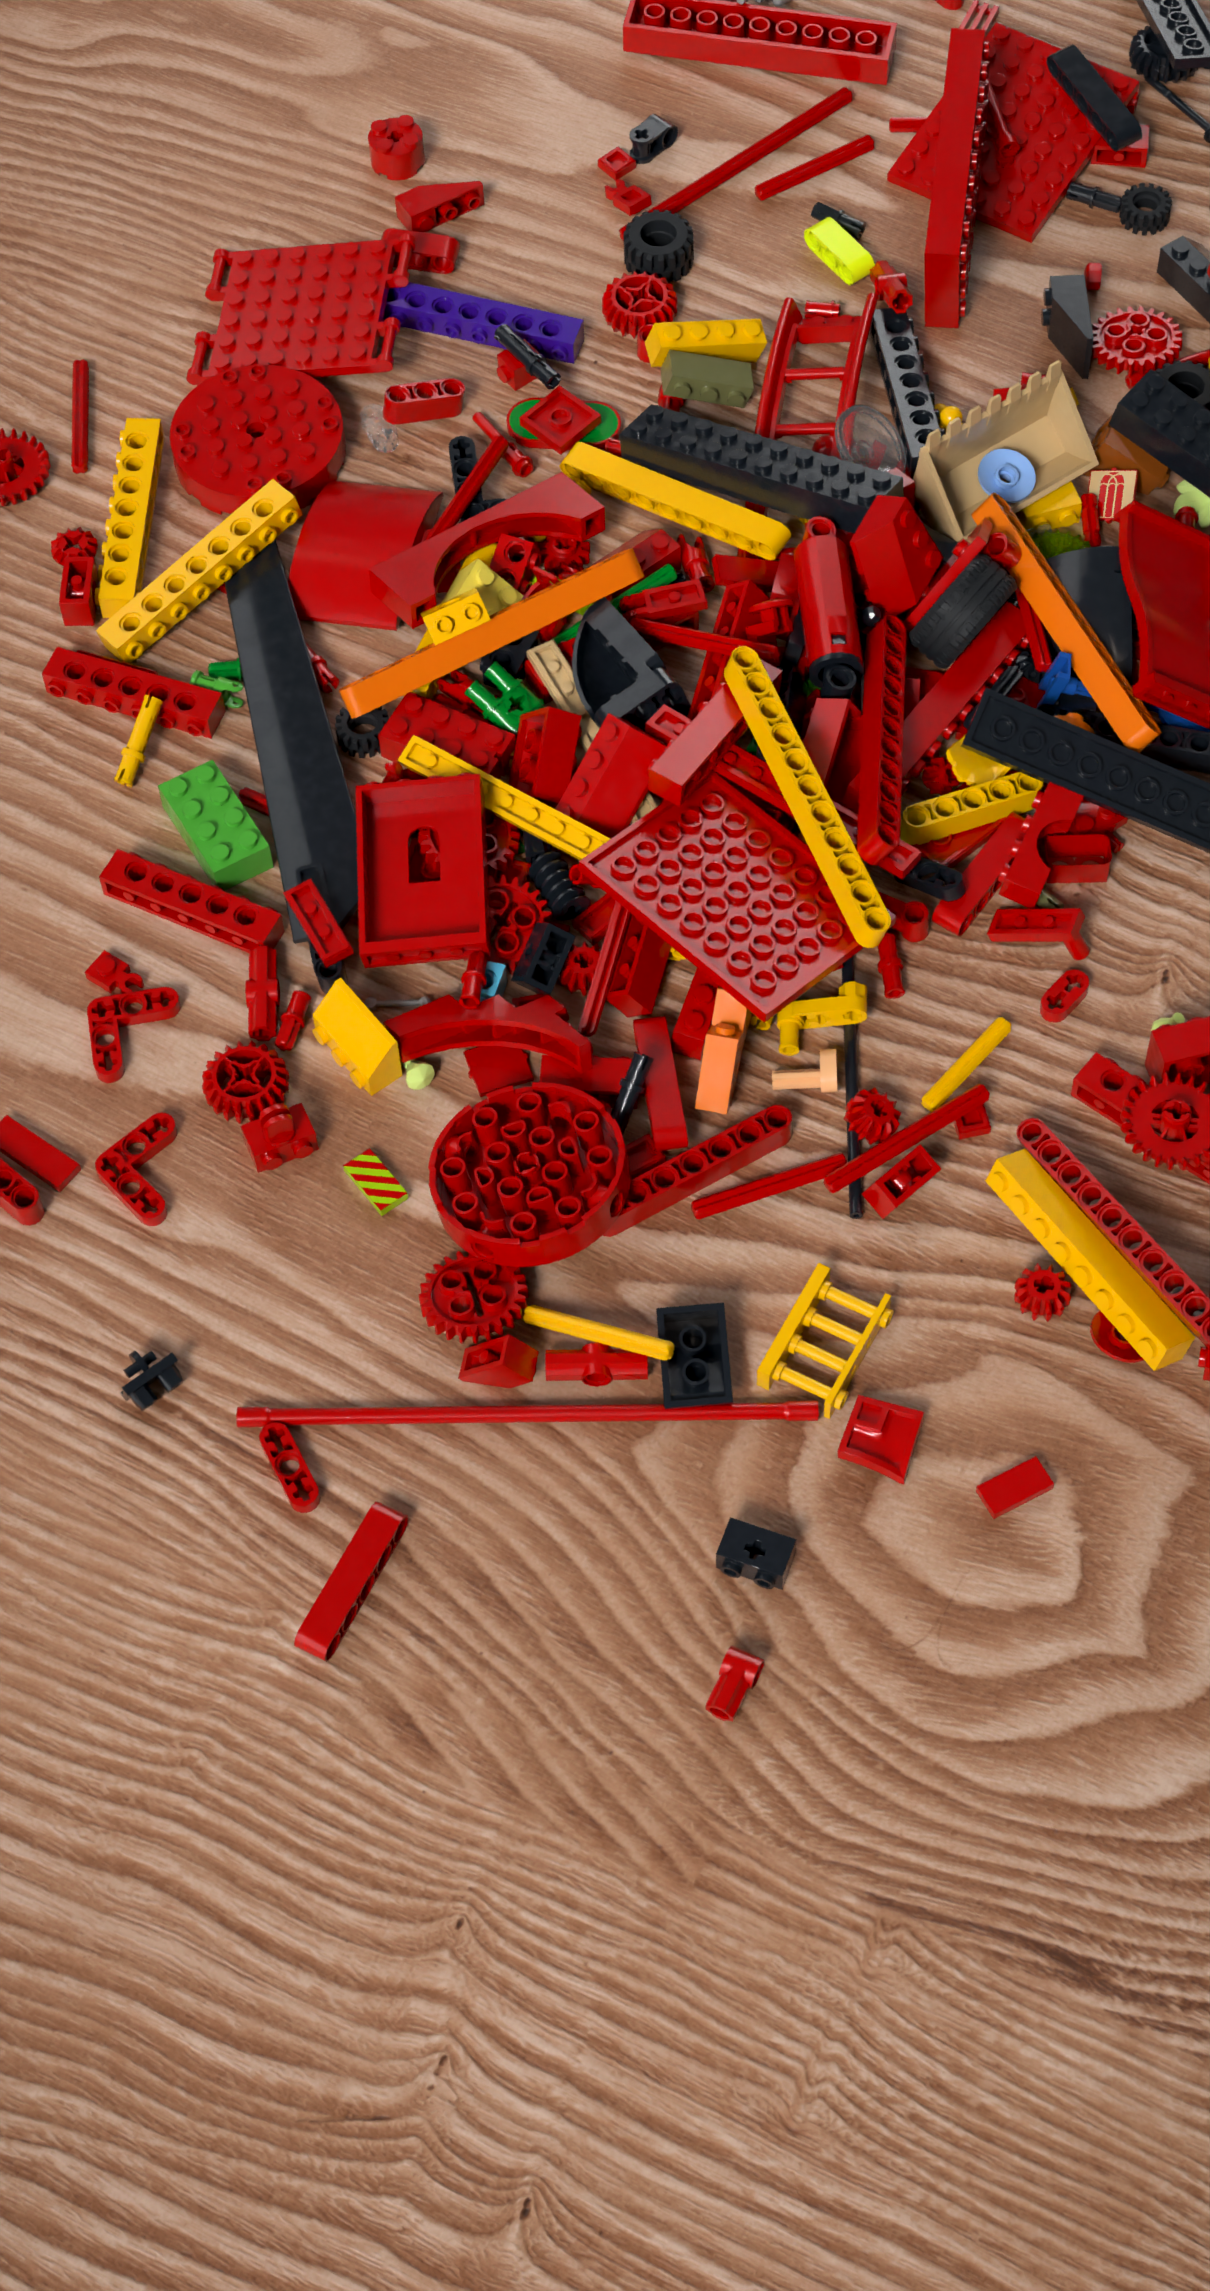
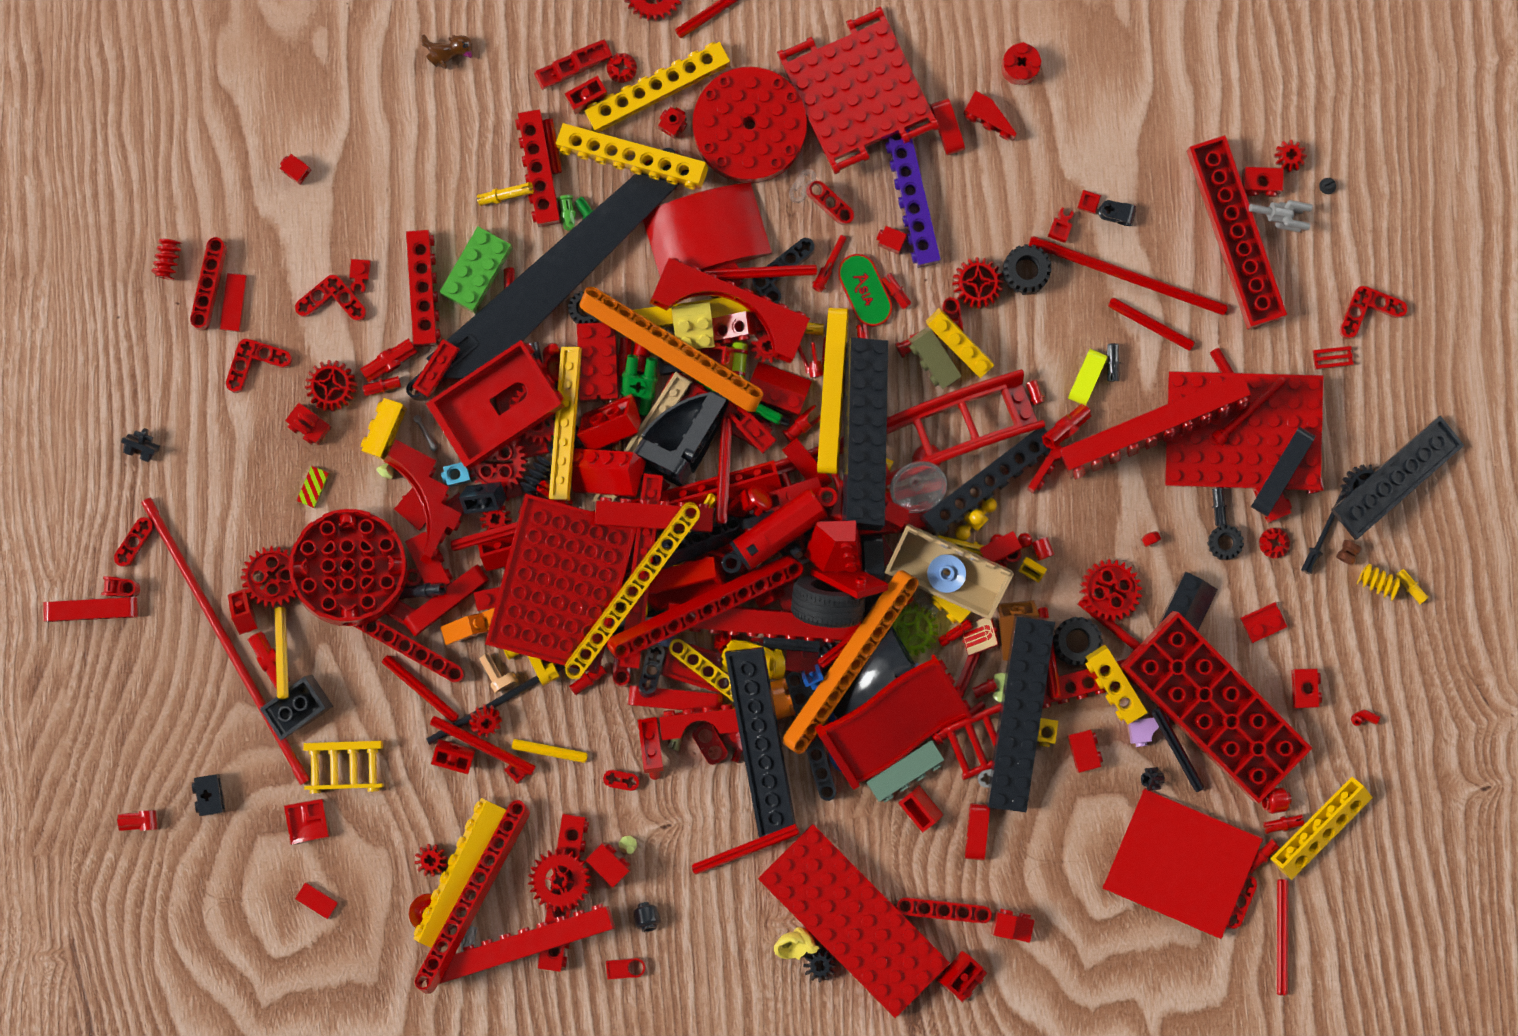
camera: 60 degrees right, 25 degrees up
(27, 595) = (573, 64): none -> red slope
(189, 517) = (672, 128): none -> red brick
(322, 672) = (612, 258): red pin -> none
(340, 1522) = (117, 587): none -> red piece
(455, 616) = (661, 325): yellow brick -> none
(473, 980) = (445, 471): red axle -> none
(535, 363) = (882, 264): black pin -> none
(560, 420) = (859, 290): red plate -> none
(569, 570) = (753, 361): red bush -> none
(592, 390) = (896, 291): none -> red axle
(629, 514) = (815, 369): none -> red plant
(931, 342) = (1046, 468): none -> red hinge
(1009, 556) = (872, 605): red beam -> none
(1069, 320) = (1101, 542): black slope -> none
(1176, 175) = (1266, 546): none -> red gear

